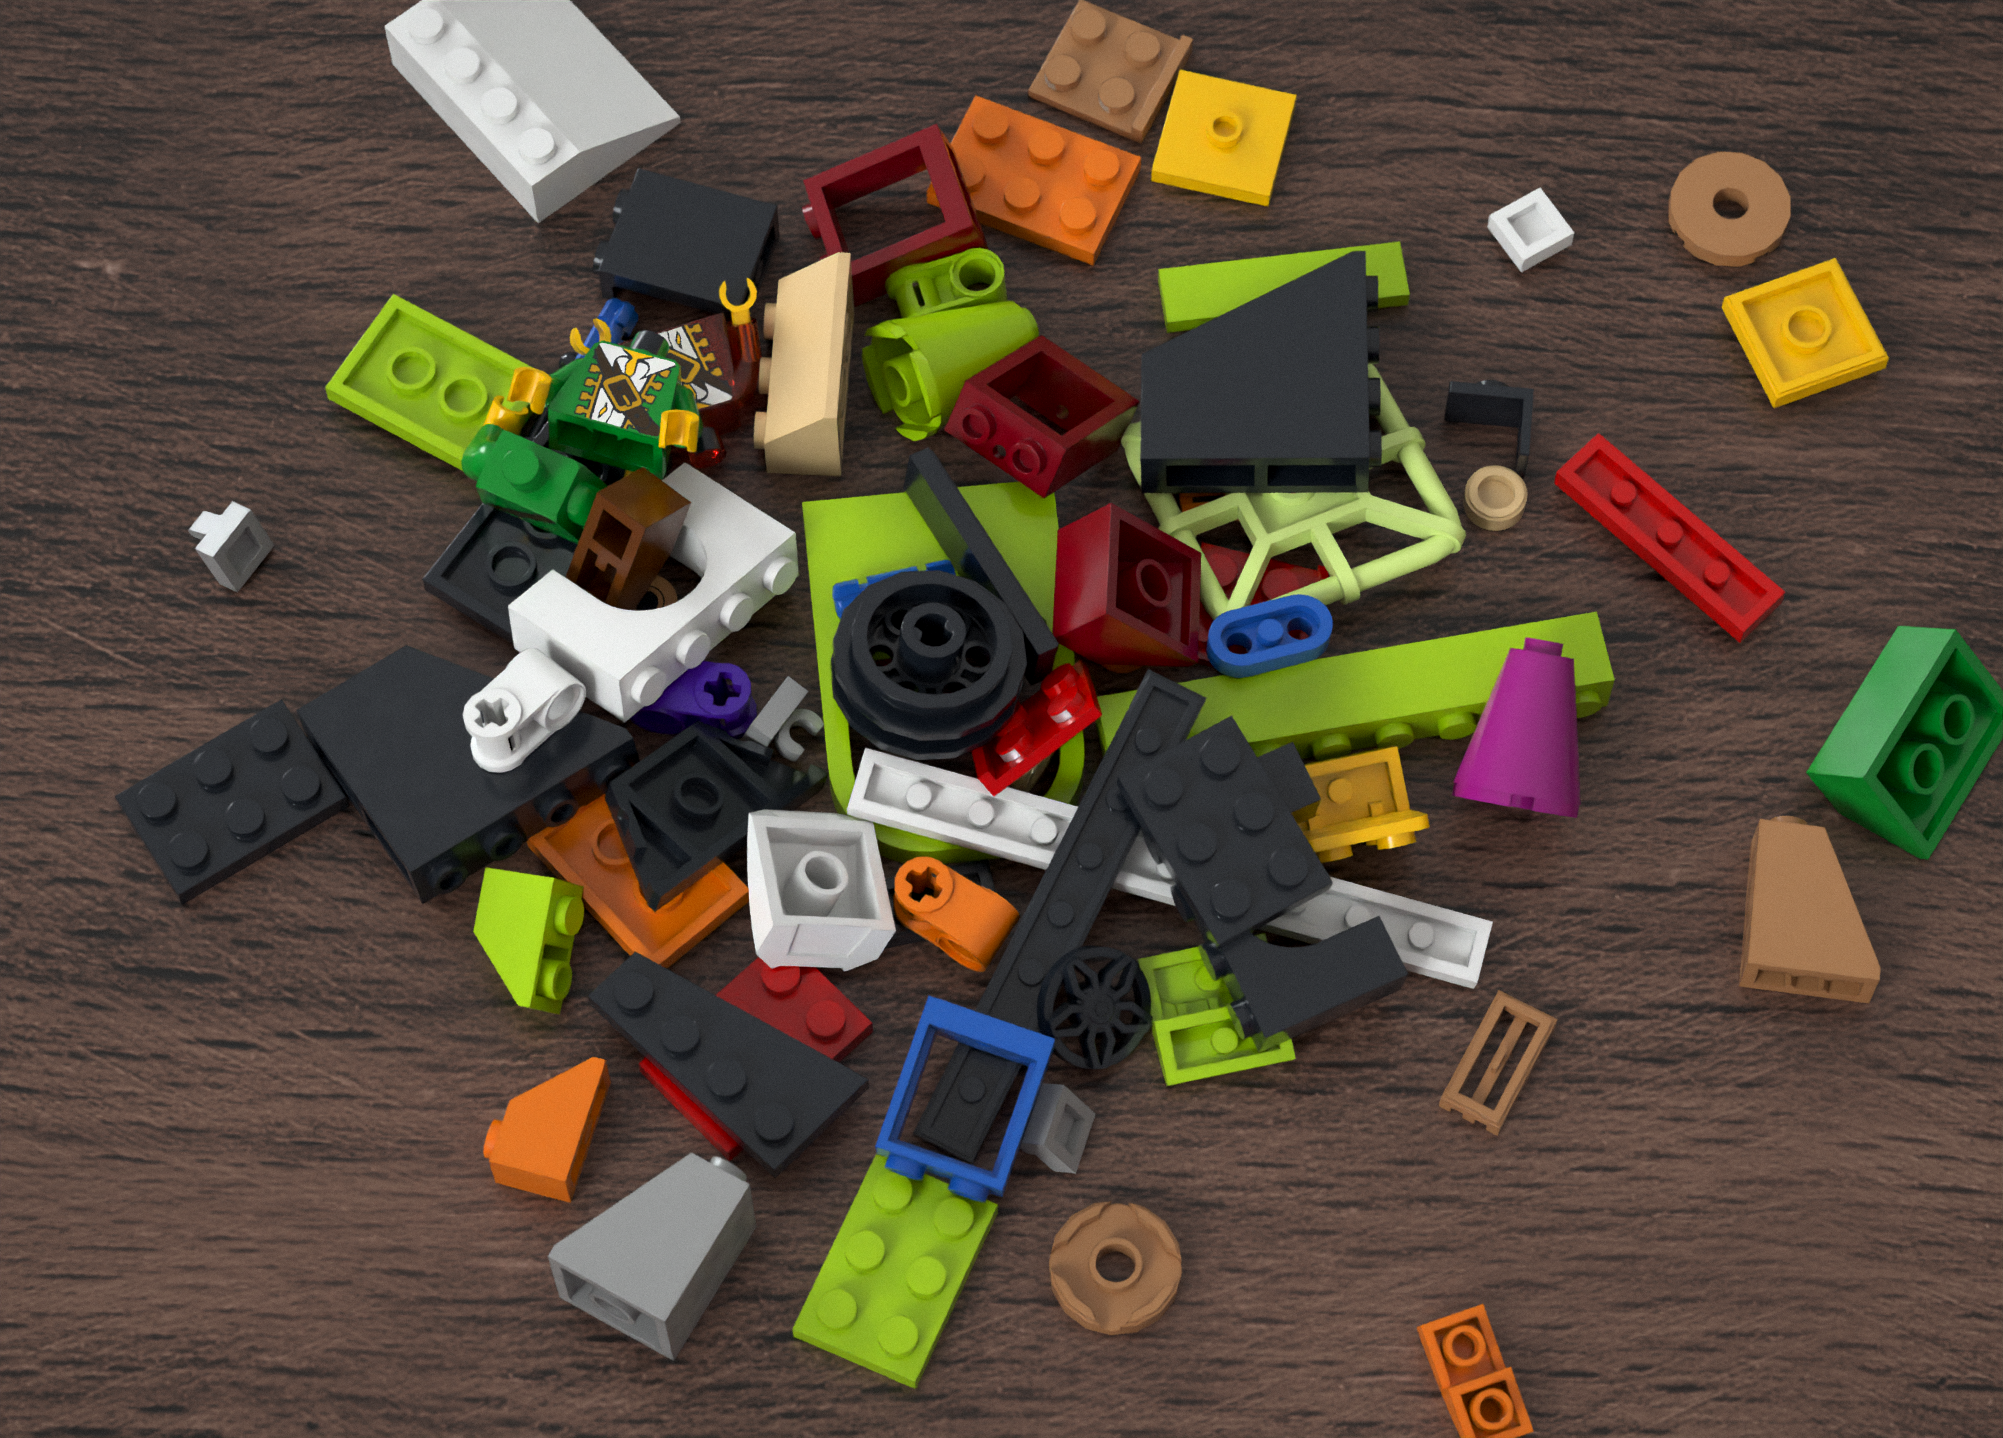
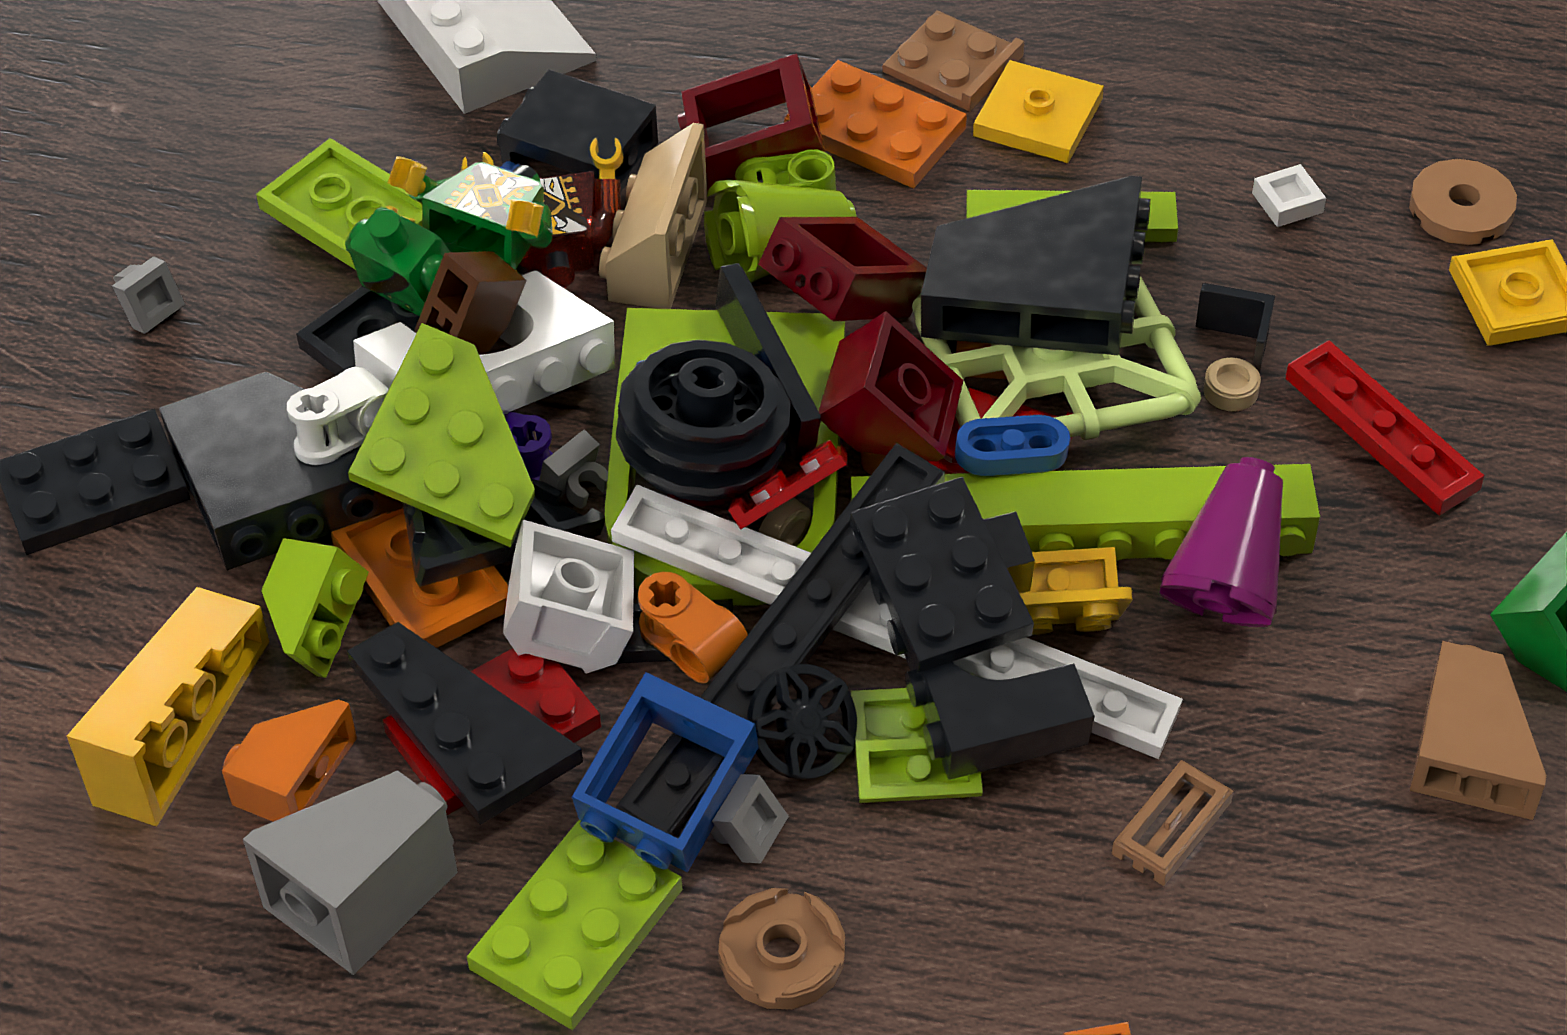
camera: 10 degrees right, 15 degrees down
(406, 1079) = (167, 705): none -> yellow wedge
(650, 735) = (446, 442): none -> lime plate

